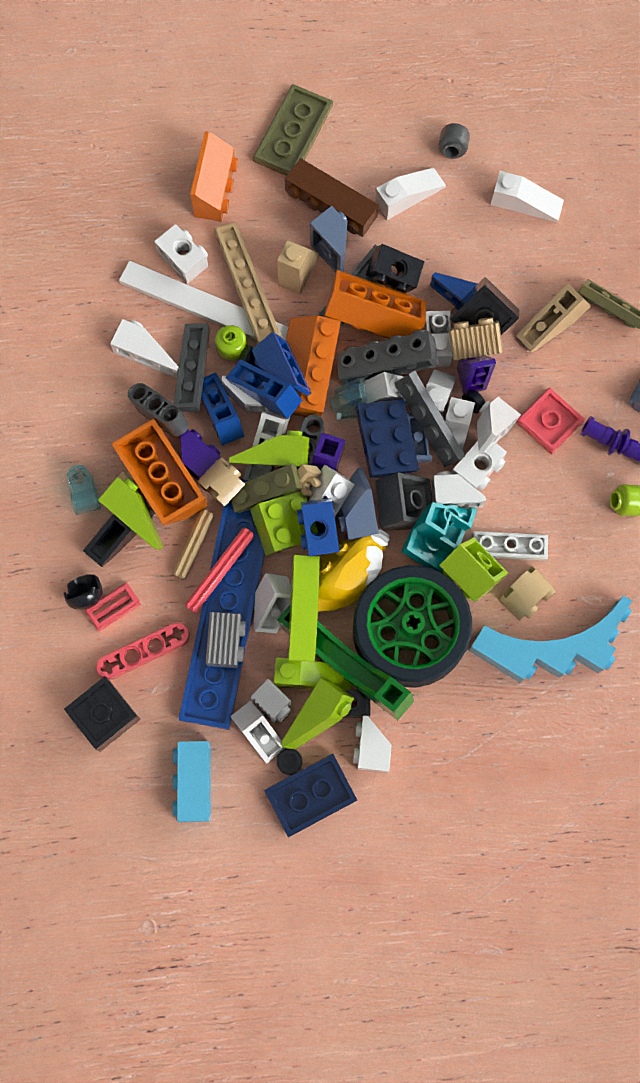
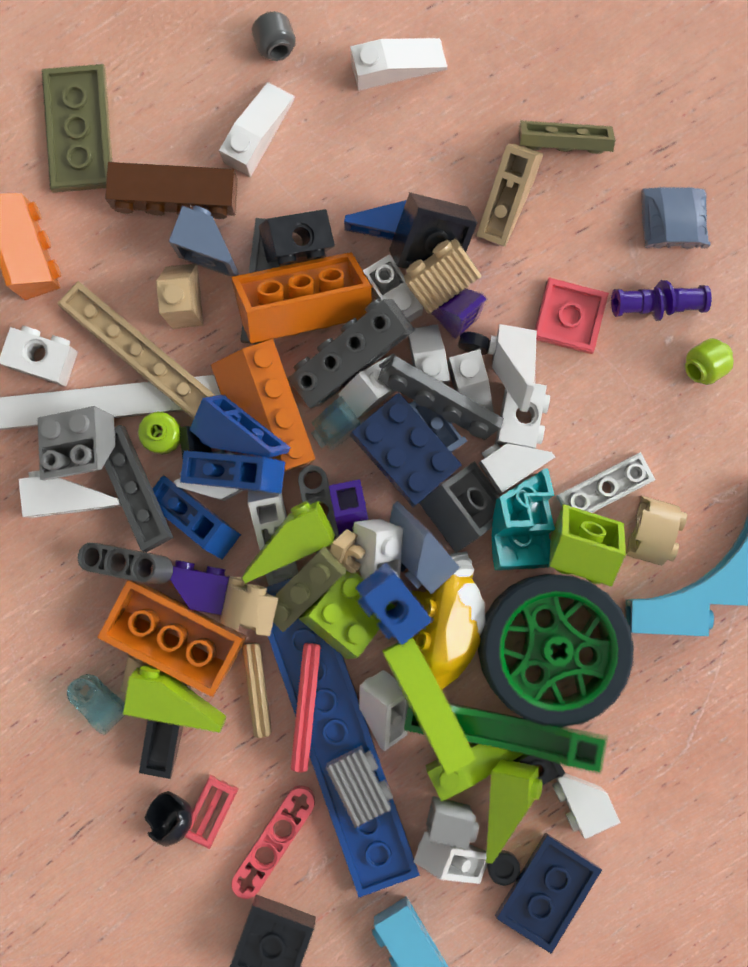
camera: 30 degrees left, 10 degrees up
(173, 314) = (74, 442): none -> light grey slope

